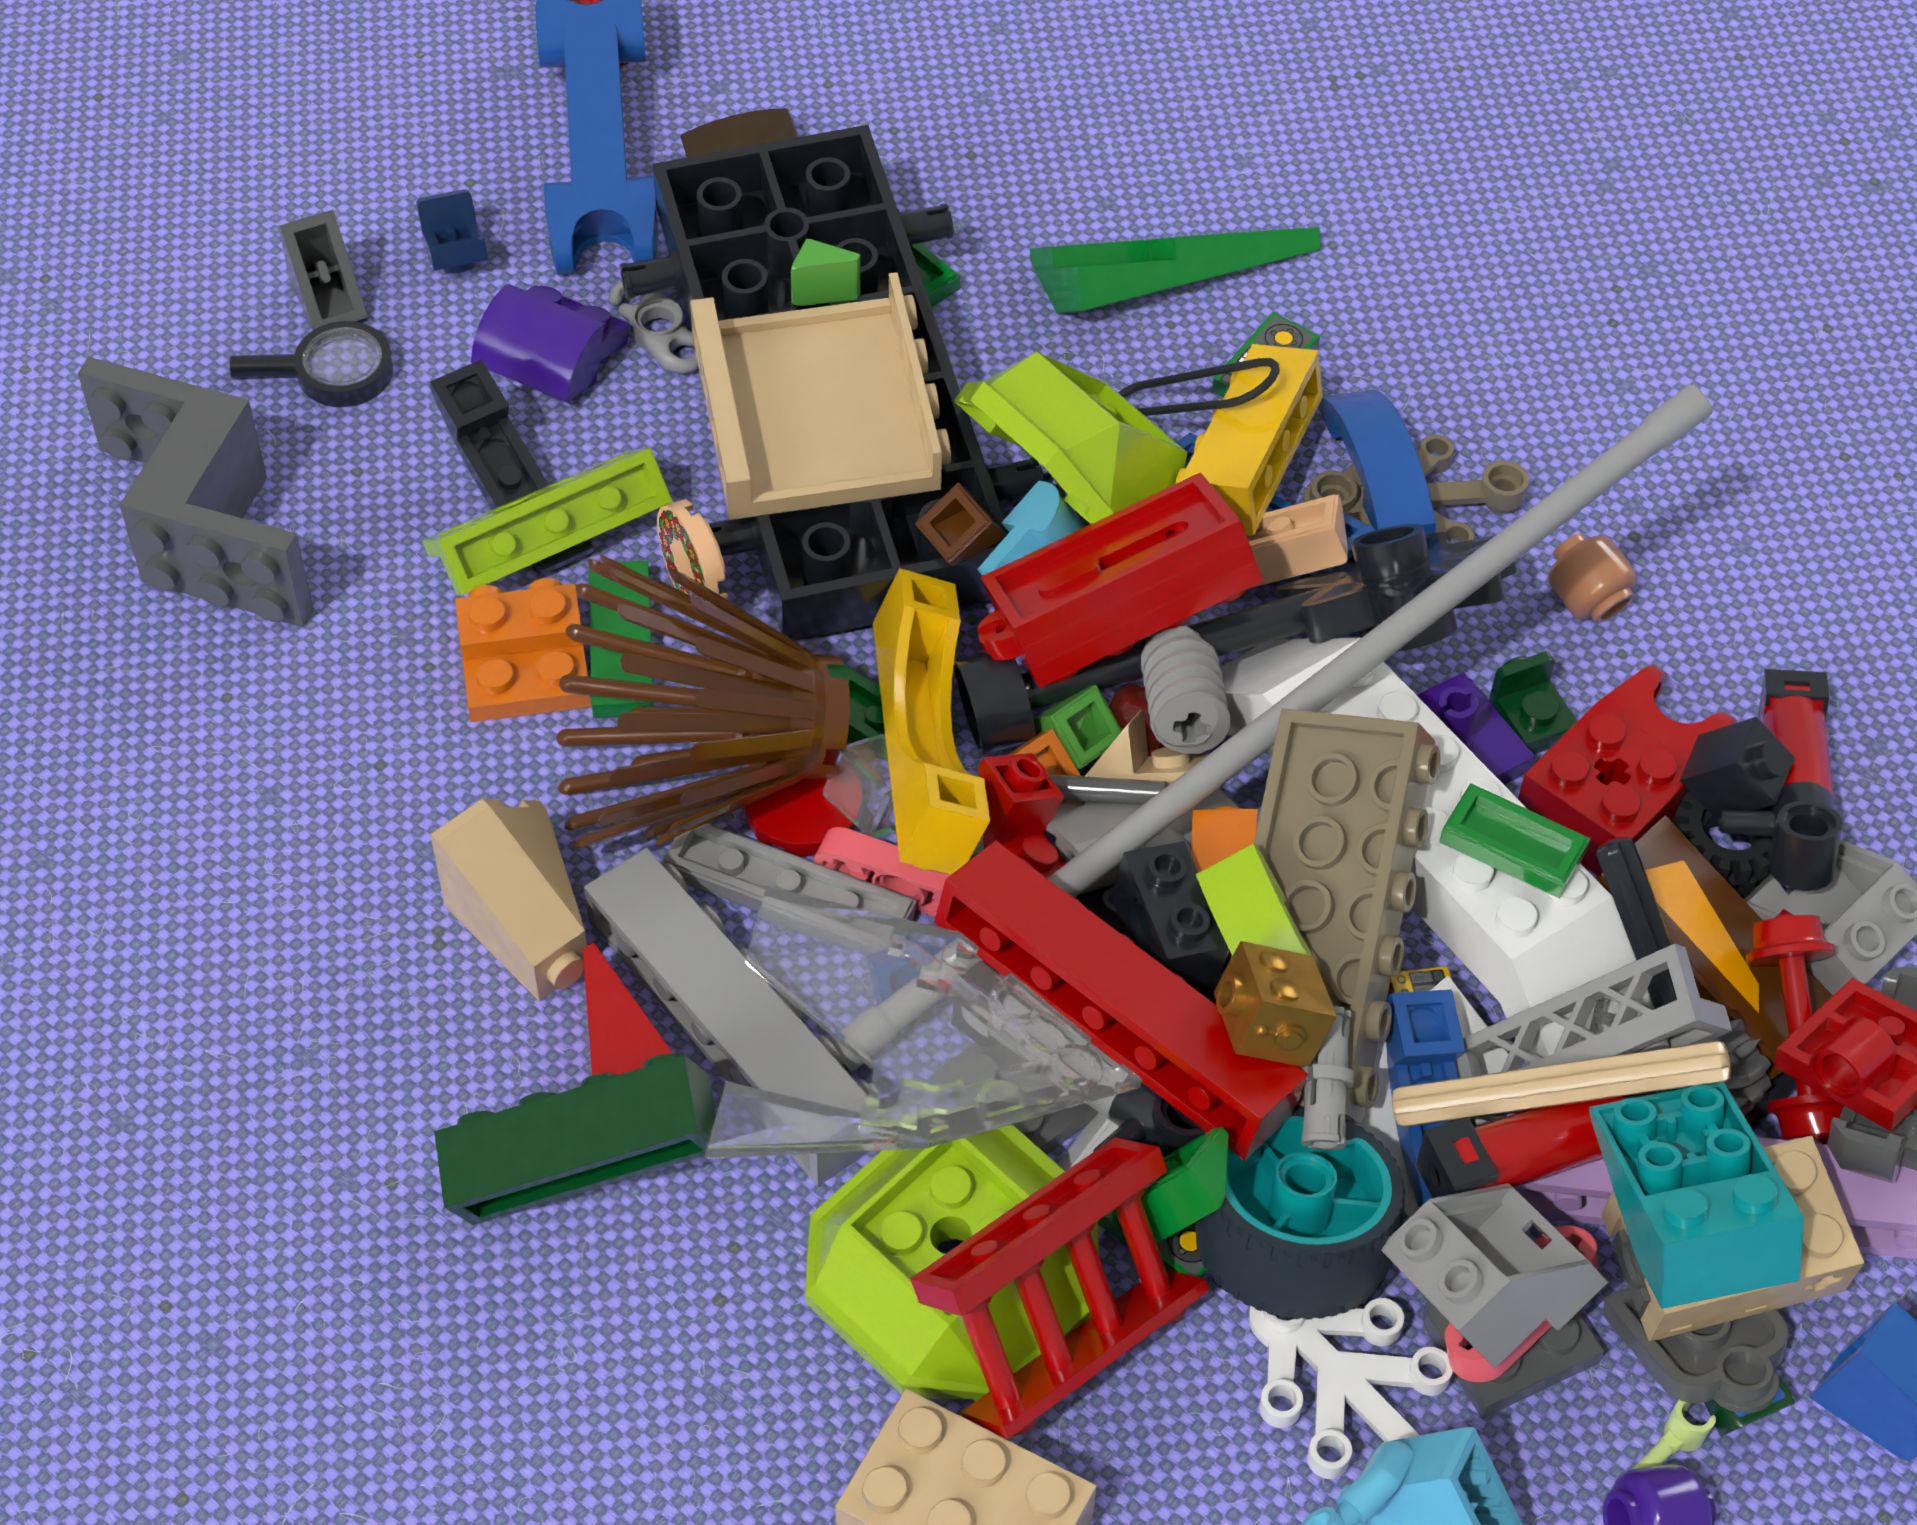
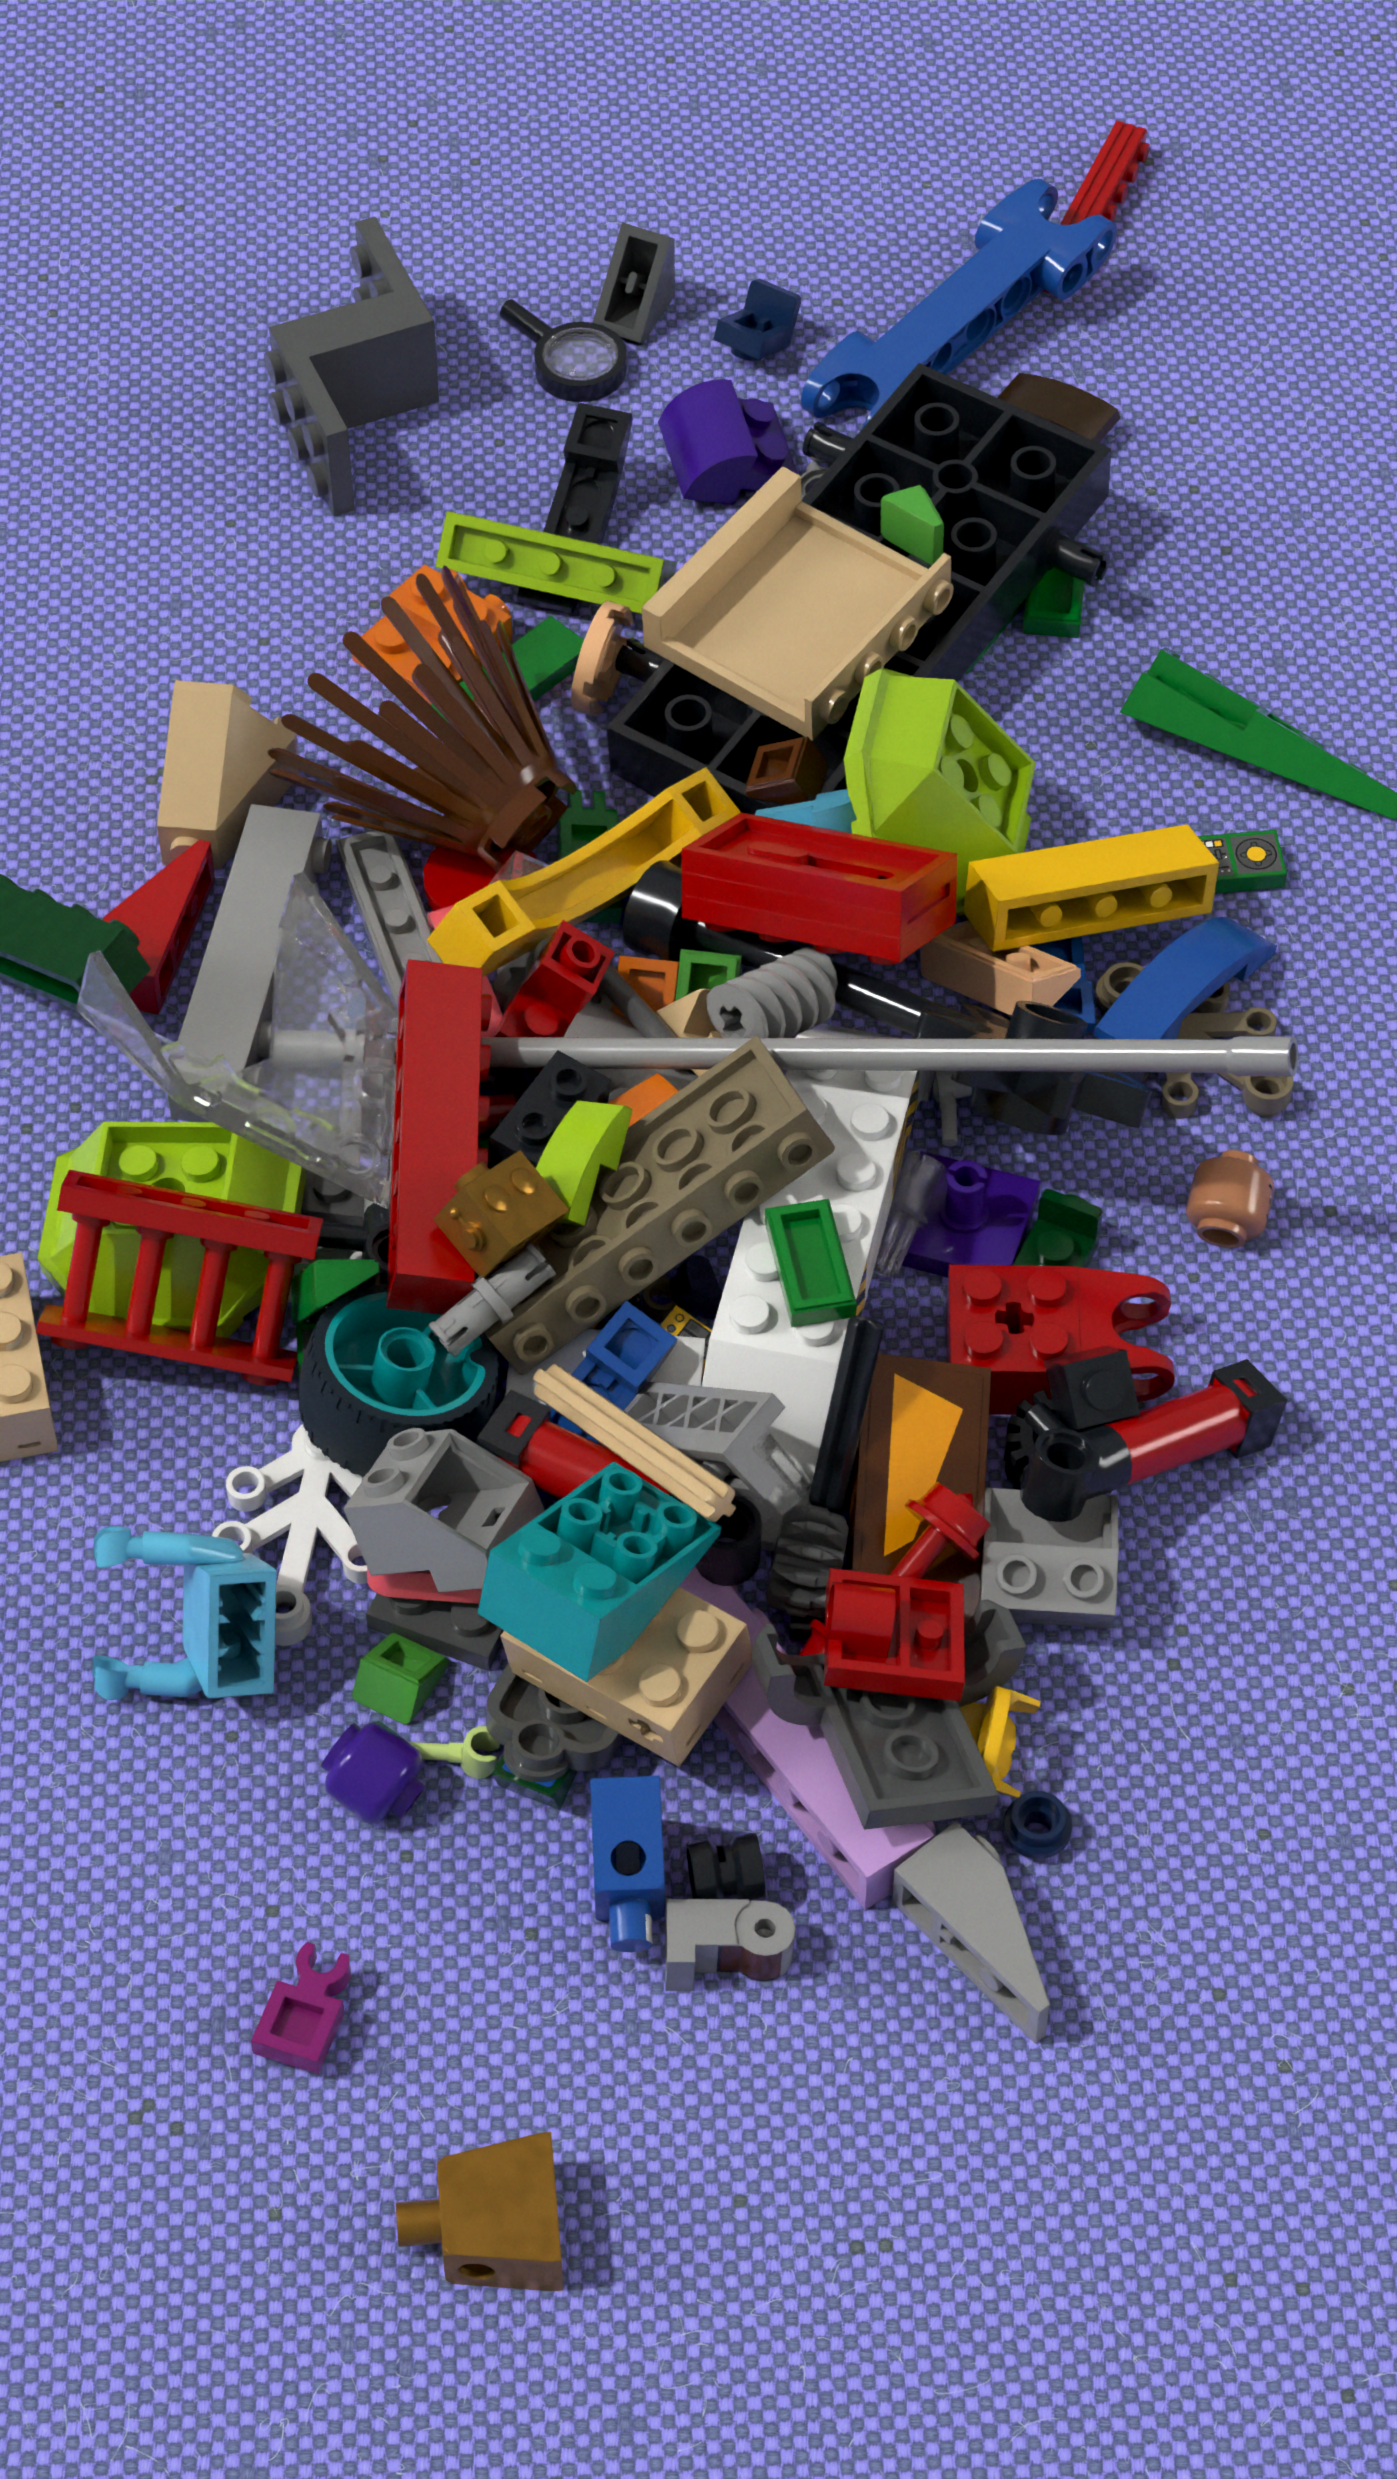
camera: 50 degrees right, 0 degrees up
(1207, 405) = (1152, 833): black piece -> none
(1560, 1430) = (398, 1677): none -> bright green slope

